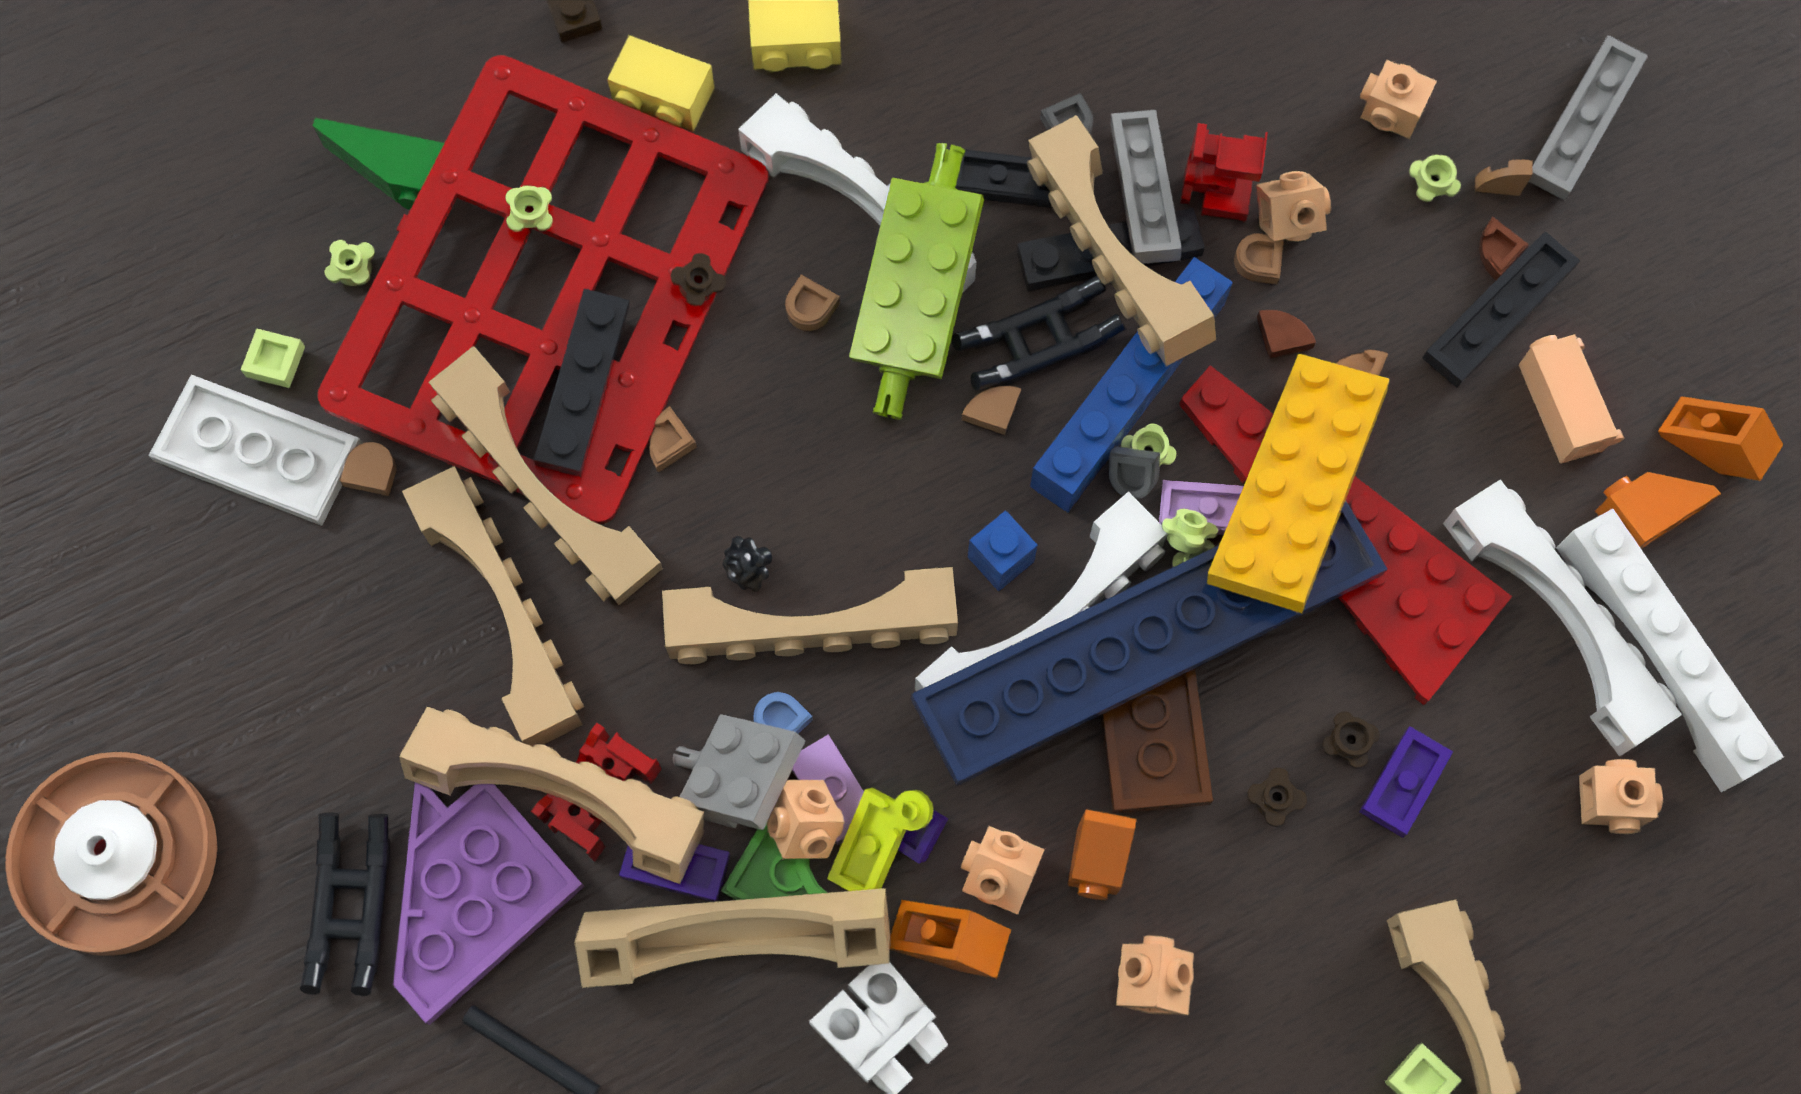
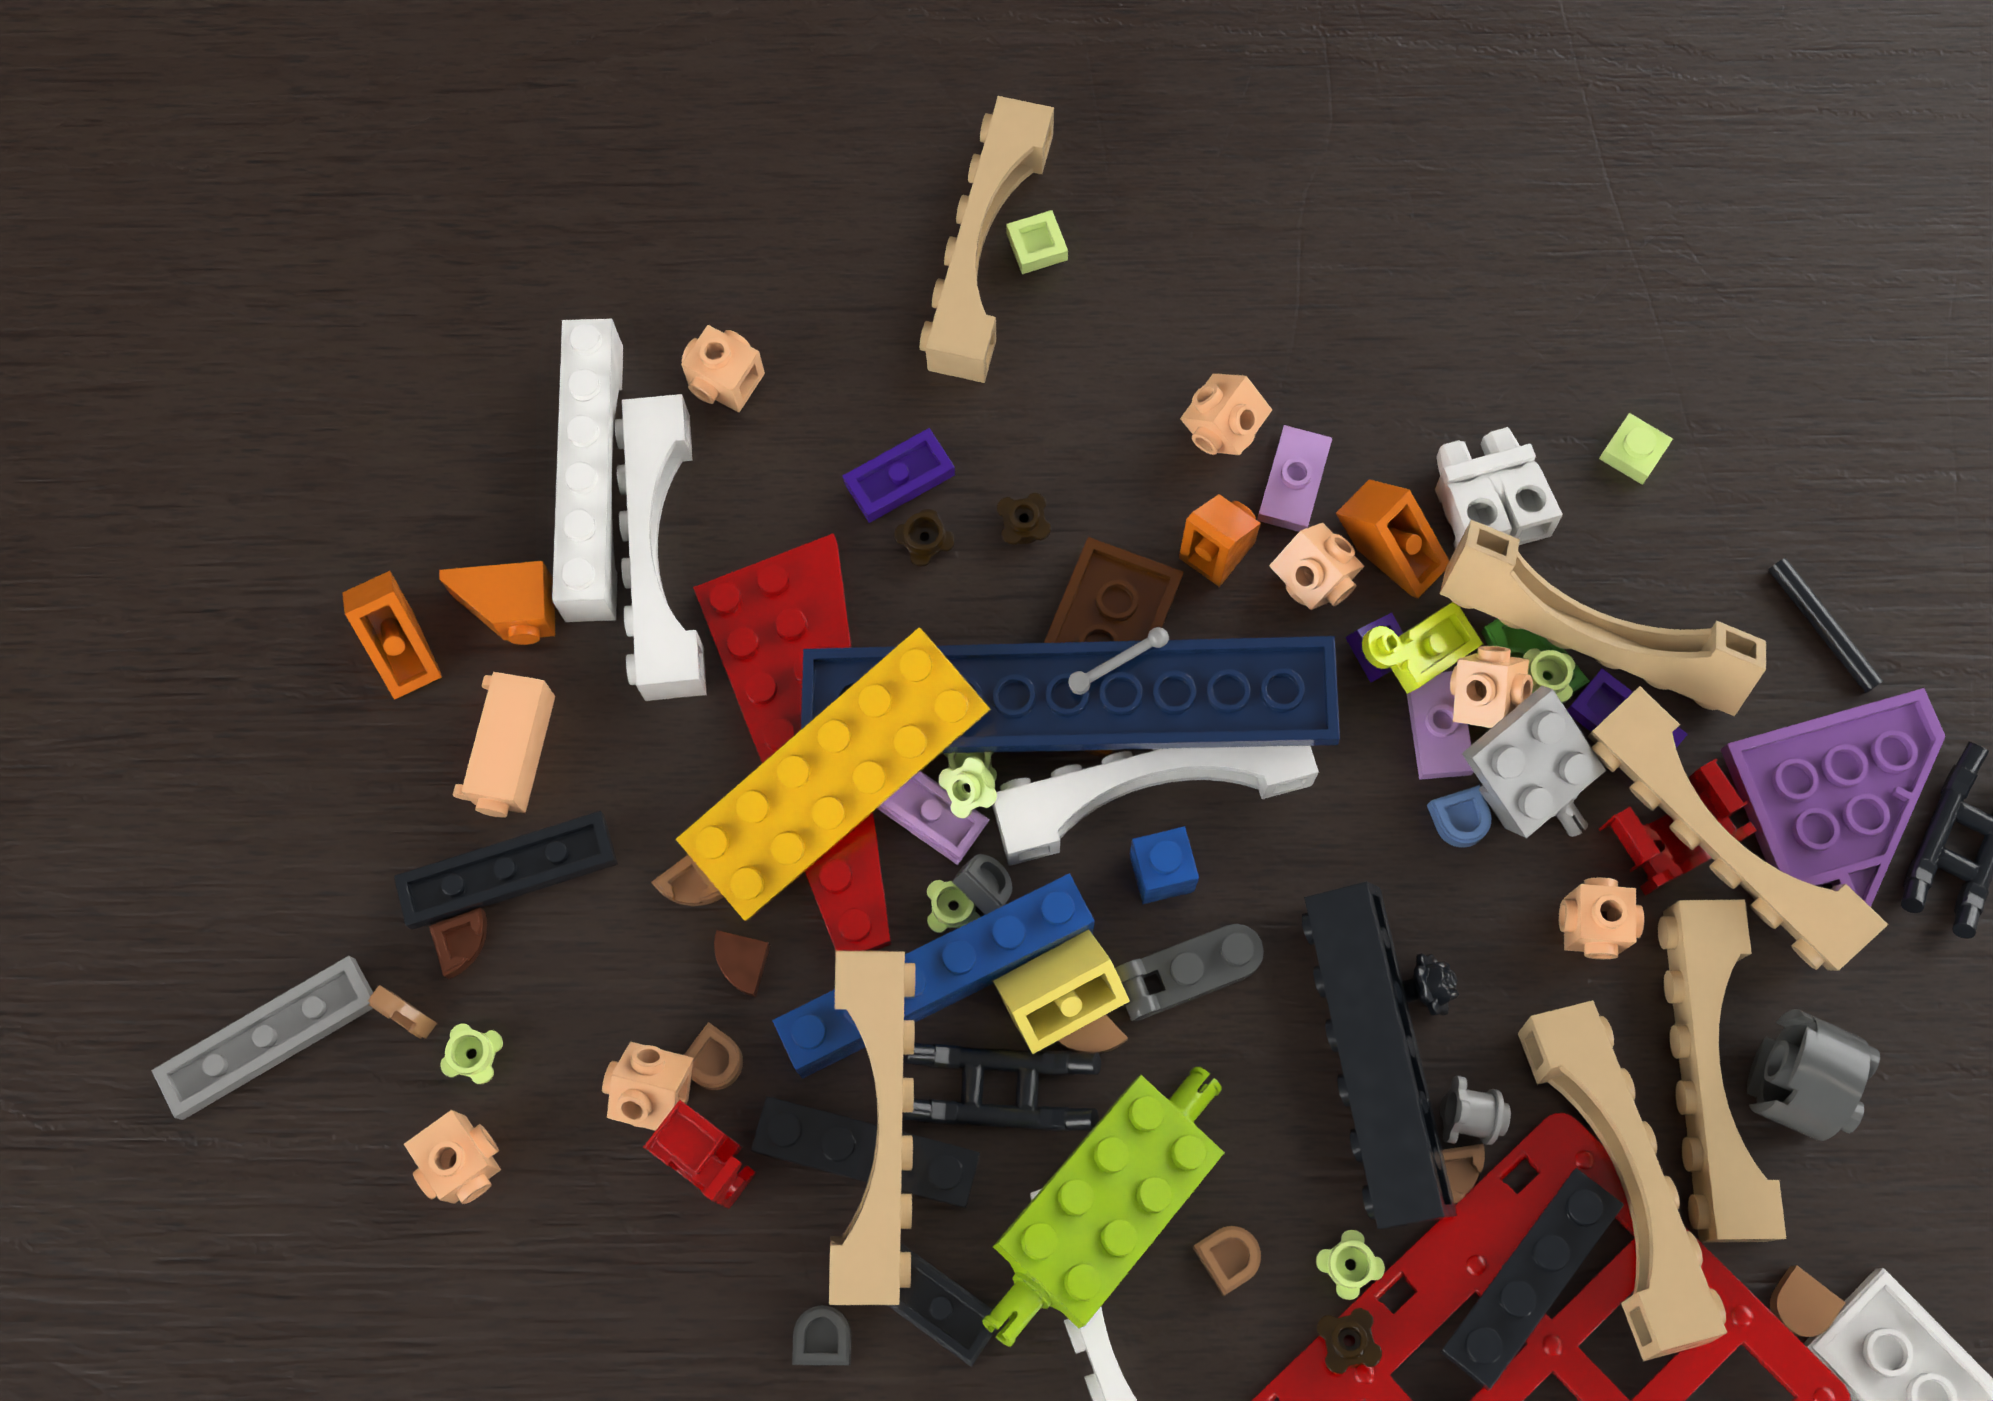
camera: 150 degrees left, 0 degrees up
(420, 624) = (1812, 1076): none -> dark grey brick
(636, 692) = (1587, 929): none -> light nougat brick
(672, 481) = (1473, 1113): none -> light grey brick
(714, 326) = (1366, 1269): none -> yellowish green plate
(746, 862) = (1557, 664): none -> yellowish green plate
(766, 487) = (1378, 1057): none -> black brick
(915, 609) = (1503, 939): tan arch -> none
(940, 491) = (1191, 969): none -> dark grey plate
(1030, 412) = (1061, 991): none -> light yellow brick
(1063, 959) = (1294, 479): none -> lavender plate
(1145, 187) = (792, 1194): light grey plate -> none
(1147, 642) = (1080, 682): none -> light grey hinge

